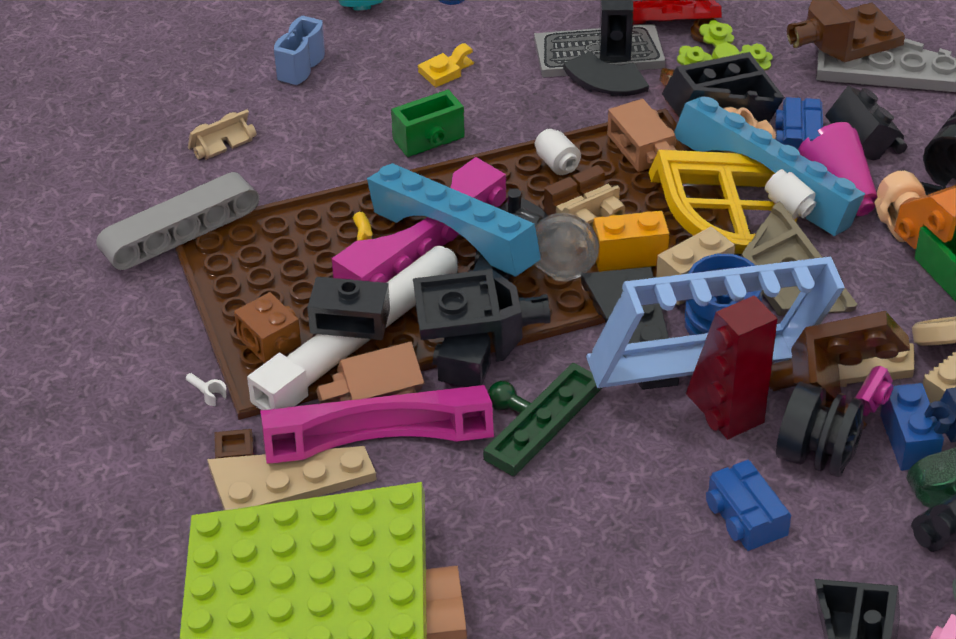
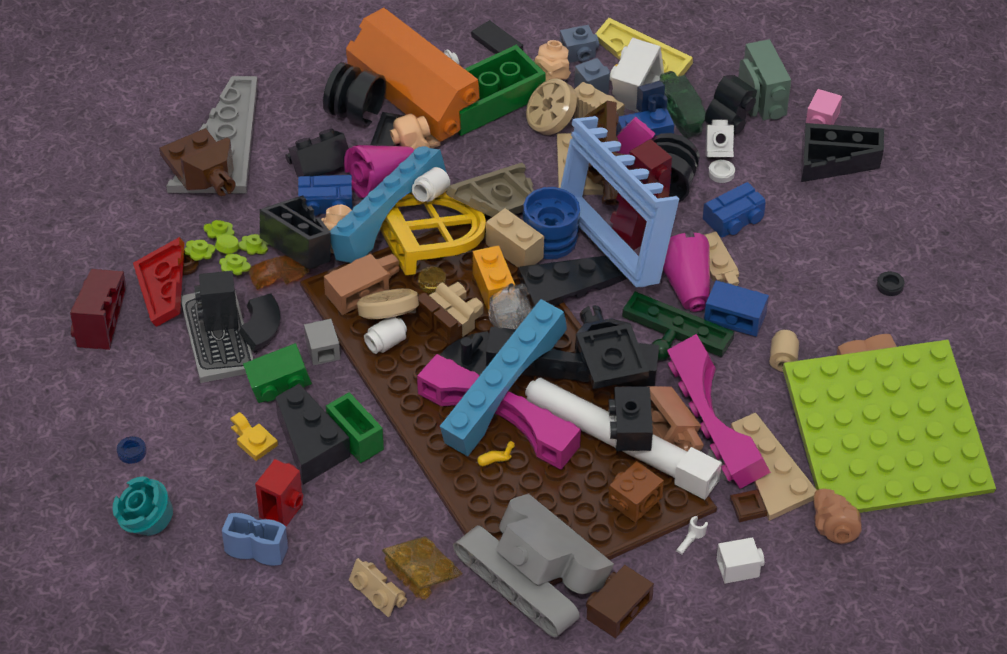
camera: 100 degrees left, 5 degrees up
(129, 306) = (619, 601): none -> reddish brown brick
(146, 415) = (739, 560): none -> white brick
(172, 514) = (836, 517): none -> nougat head
(202, 234) = (548, 548): none -> light grey brick
(238, 154) = (420, 565): none -> clear yellow hinge
(346, 61) = (279, 492): none -> red brick
(464, 80) = (310, 433): none -> black wedge
(472, 517) = (783, 349): none -> tan brick
(519, 77) = (276, 373): none -> green brick
(552, 472) = (736, 308): none -> blue brick
(566, 111) = (322, 342): none -> light grey brick
(595, 145) = (388, 303): none -> tan wheel
(624, 430) = (689, 269): none -> dark pink cone
(648, 200) = (430, 278): none -> clear yellow tile
(657, 480) = (721, 264): none -> tan hinge
(839, 513) = (721, 171): none -> white tile
(886, 503) = (716, 149): none -> white brick

